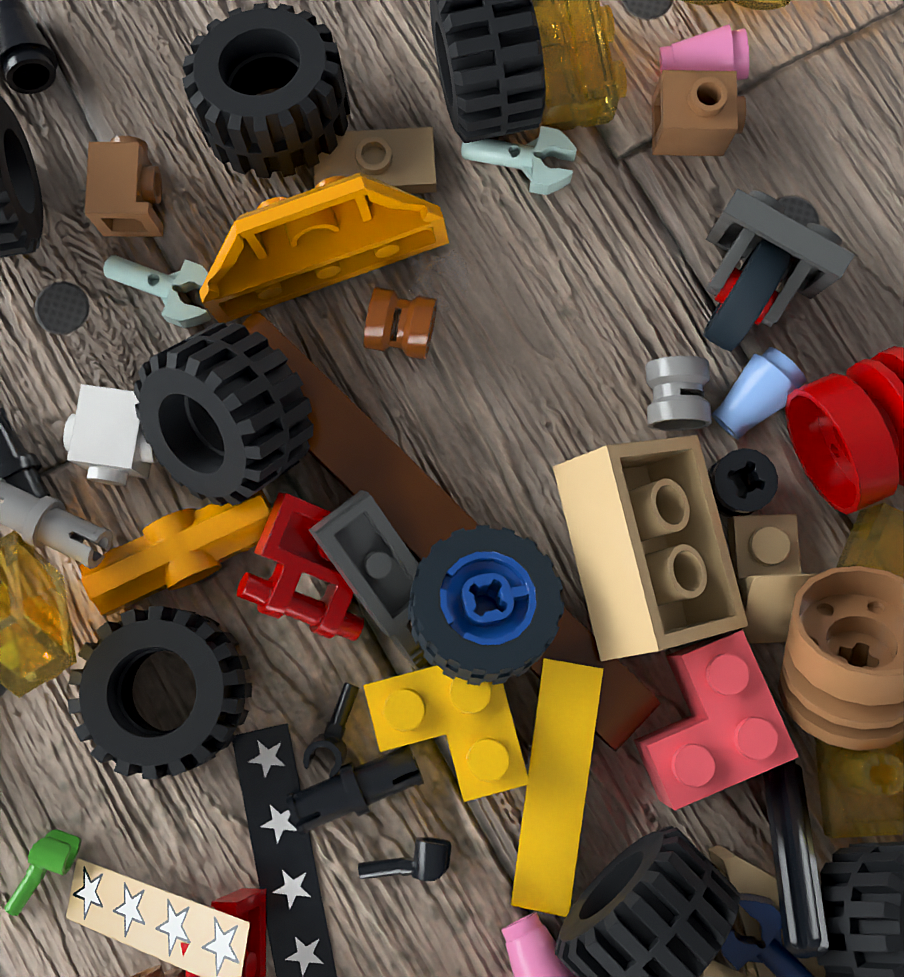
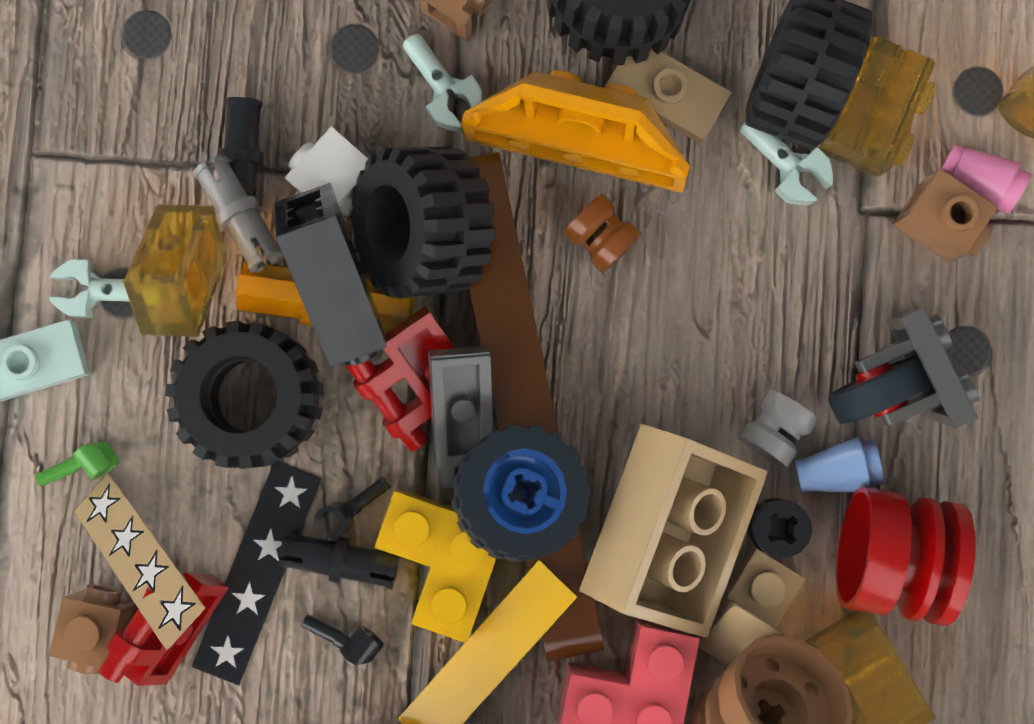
camera: 35 degrees right, 5 degrees up
(168, 522) = (329, 276): none -> black slope

